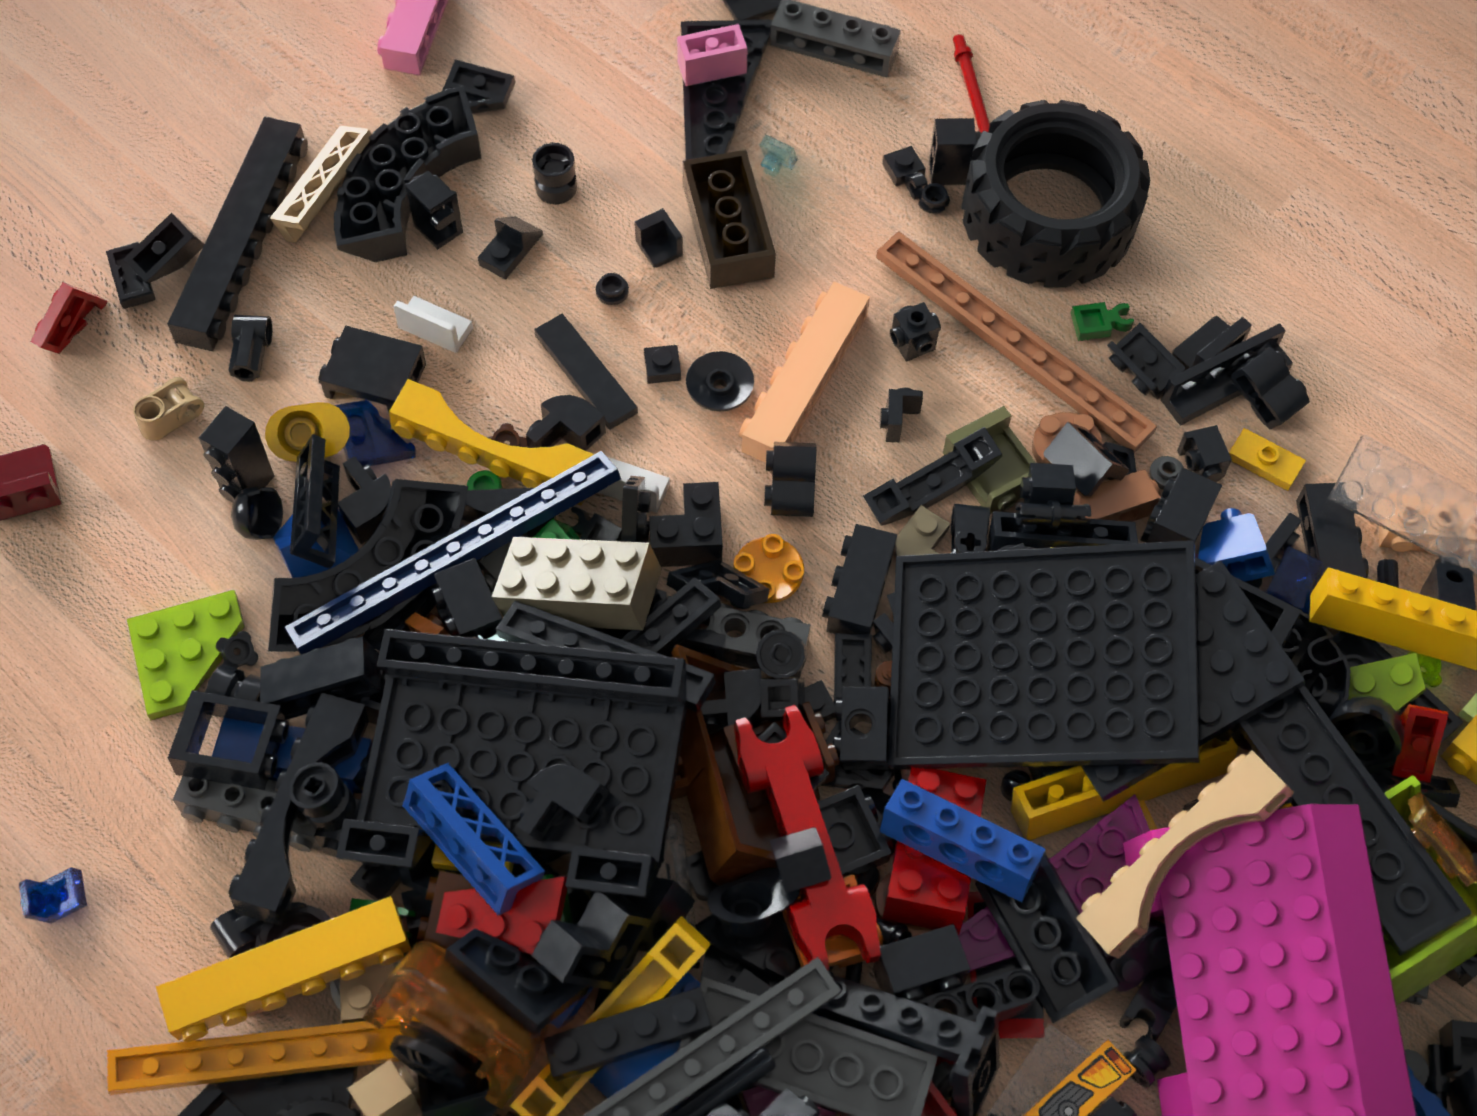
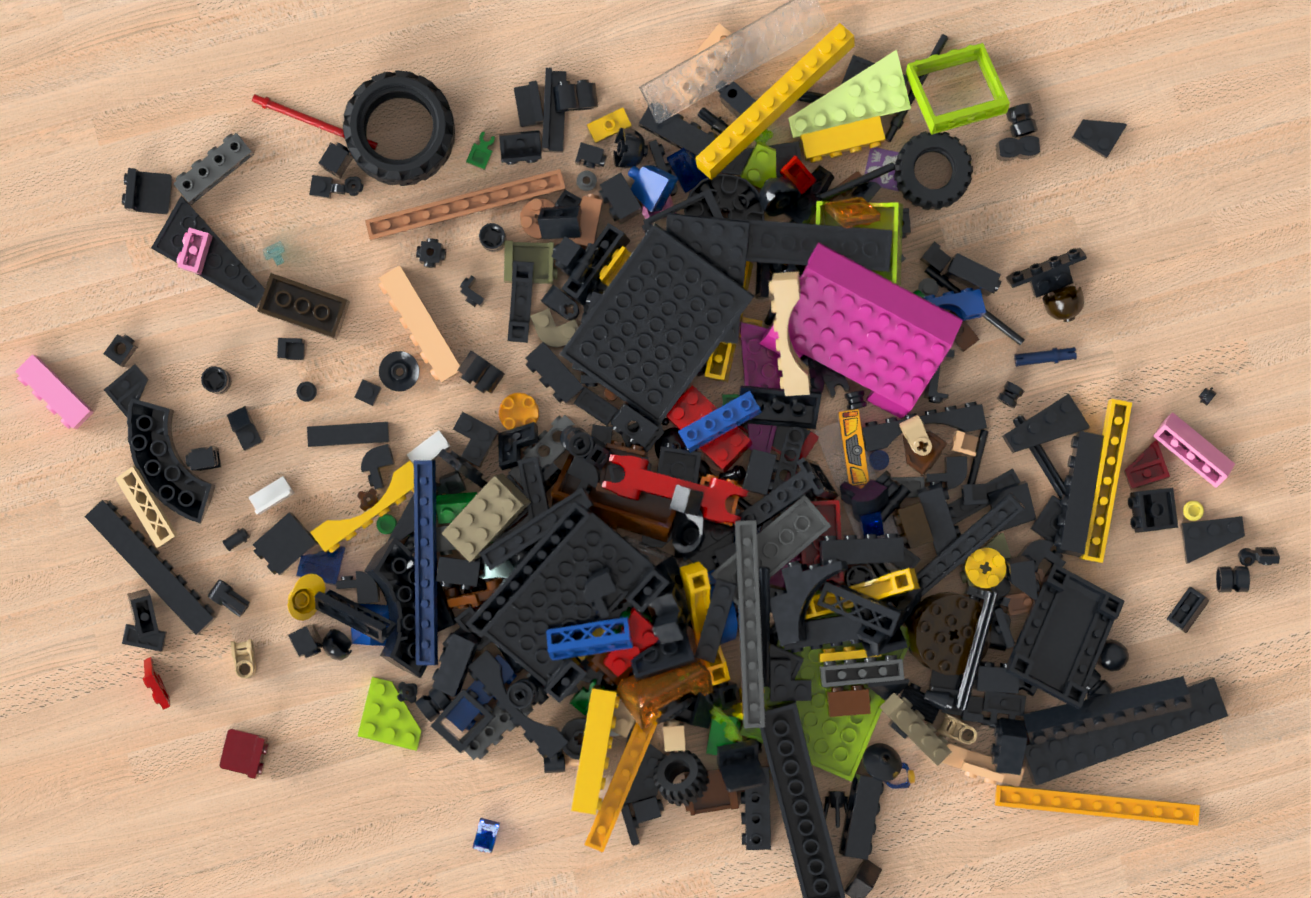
camera: 60 degrees left, 25 degrees up
(343, 312) = (236, 539): none -> black pin
(523, 55) = (111, 351): none -> black brick
(994, 387) = (492, 237): none -> black wheel
(1261, 495) = (630, 148): none -> black cylinder

